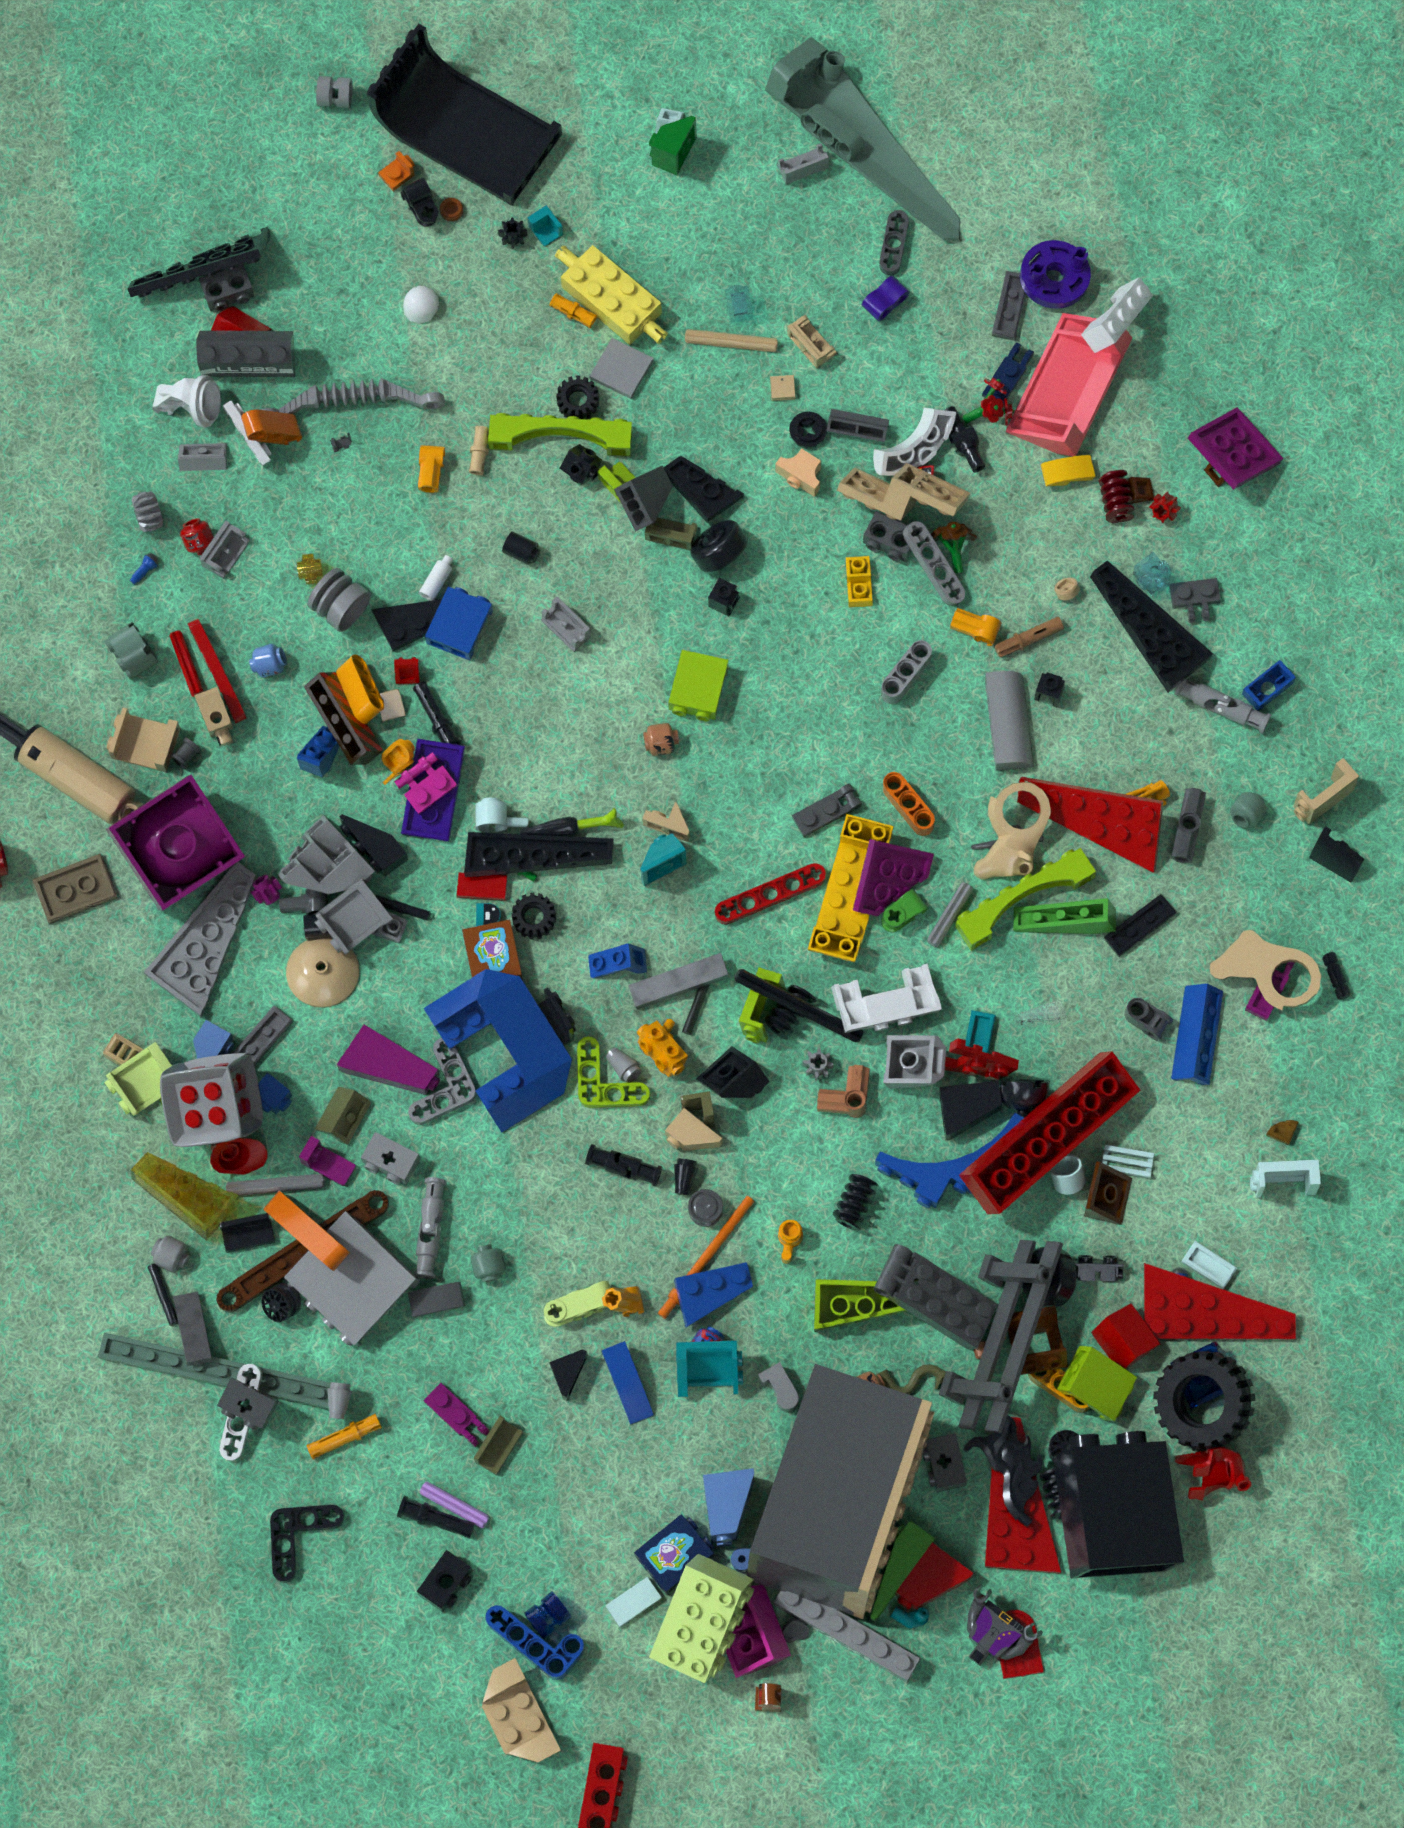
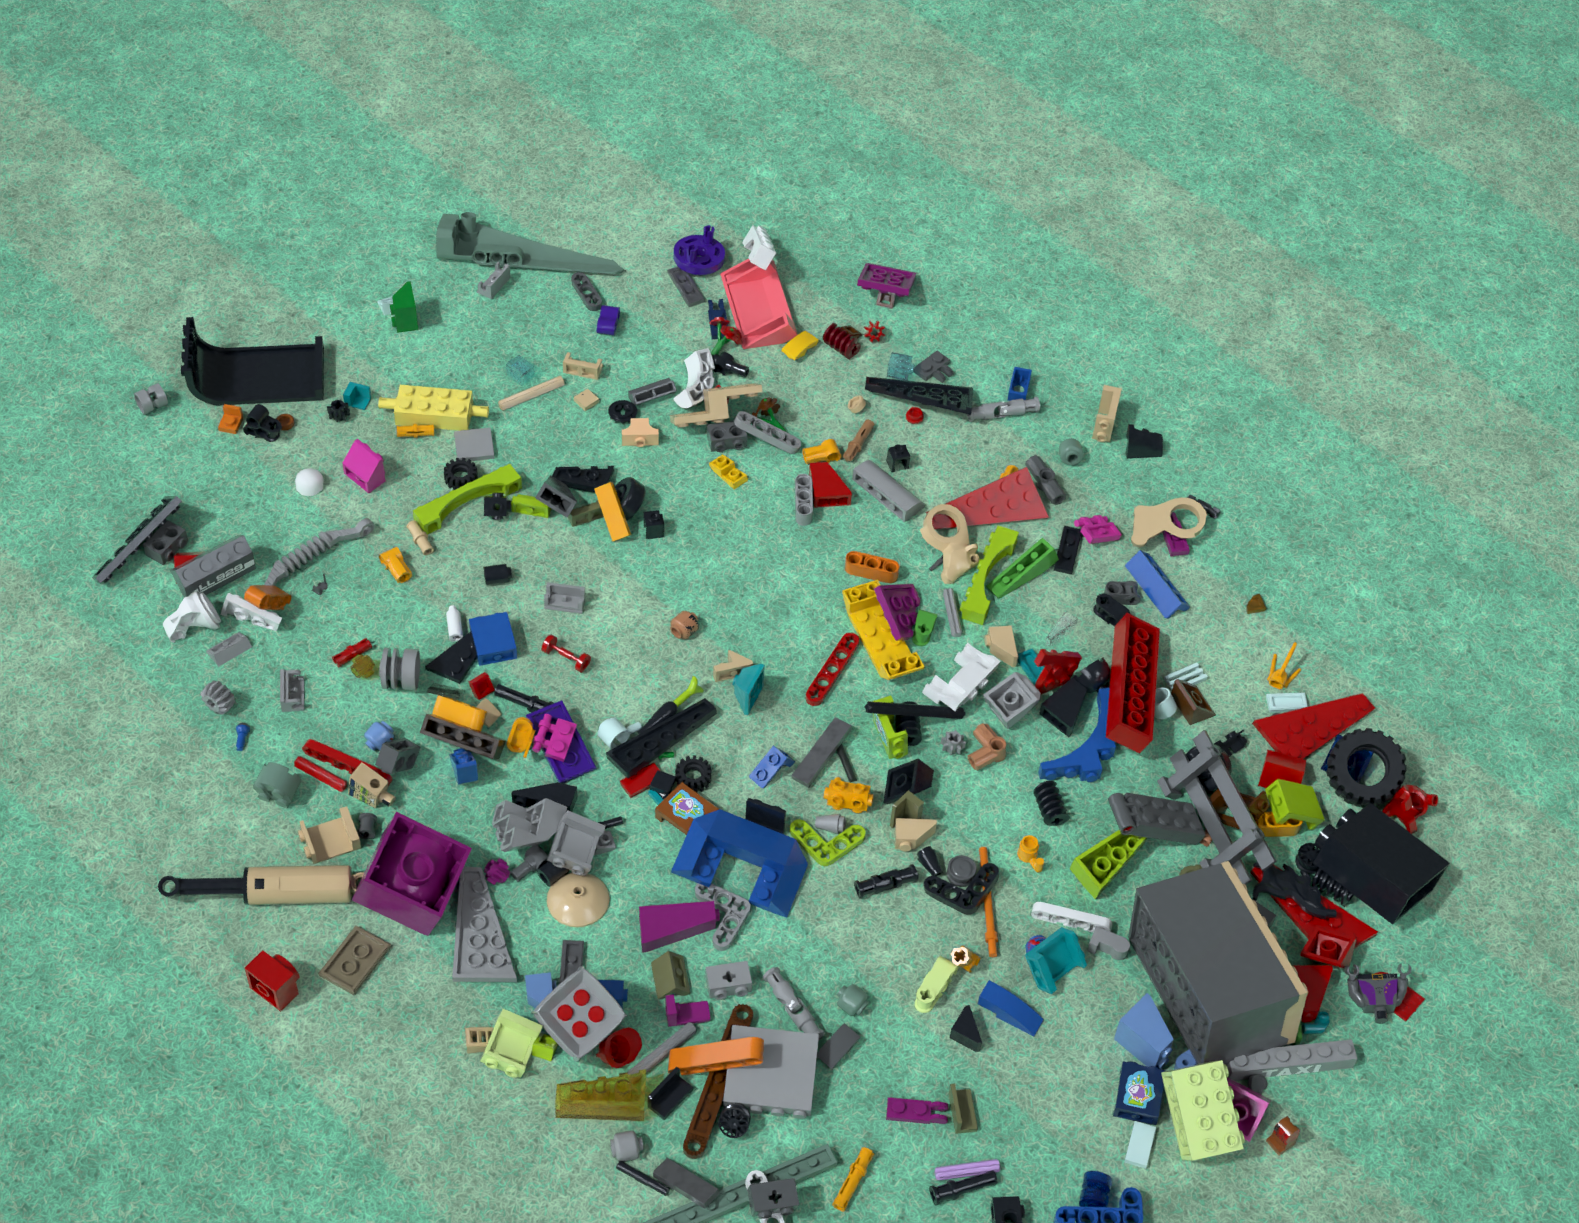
camera: 45 degrees left, 20 degrees down
(196, 535) = (266, 692): red head -> none
(263, 698) = (397, 756): none -> dark grey brick
(314, 543) = (351, 652): none -> red pin
(338, 1398) = (831, 1152): light grey cone -> none
(366, 654) = (446, 691): none -> clear smoke piece
(483, 326) = (364, 466): none -> dark pink slope
(494, 905) = (662, 782): none -> black tile
(525, 711) = (550, 644): none -> red wheel
(681, 1234) = (963, 896): none -> black beam
(688, 555) = (612, 511): none -> light orange tile
(698, 685) = (682, 581): lime panel -> none
(709, 1290) = (1010, 917): blue wing -> none
(769, 1335) = (1070, 917): none -> white beam
(826, 810) = (824, 603): dark grey plate -> none
(943, 672) = (827, 486): none -> red slope
(966, 988) = (1002, 644): none -> tan slope
(984, 1555) = (1329, 947): none -> red slope
(1116, 1034) = (1110, 612): none -> black piece
(1118, 646) = (914, 415): none -> red plate
(1190, 931) = (1097, 529): none -> dark pink plate
(1224, 1231) = (1279, 677): none -> light orange plant
(1286, 1172) = (1294, 612): light aqua panel -> none

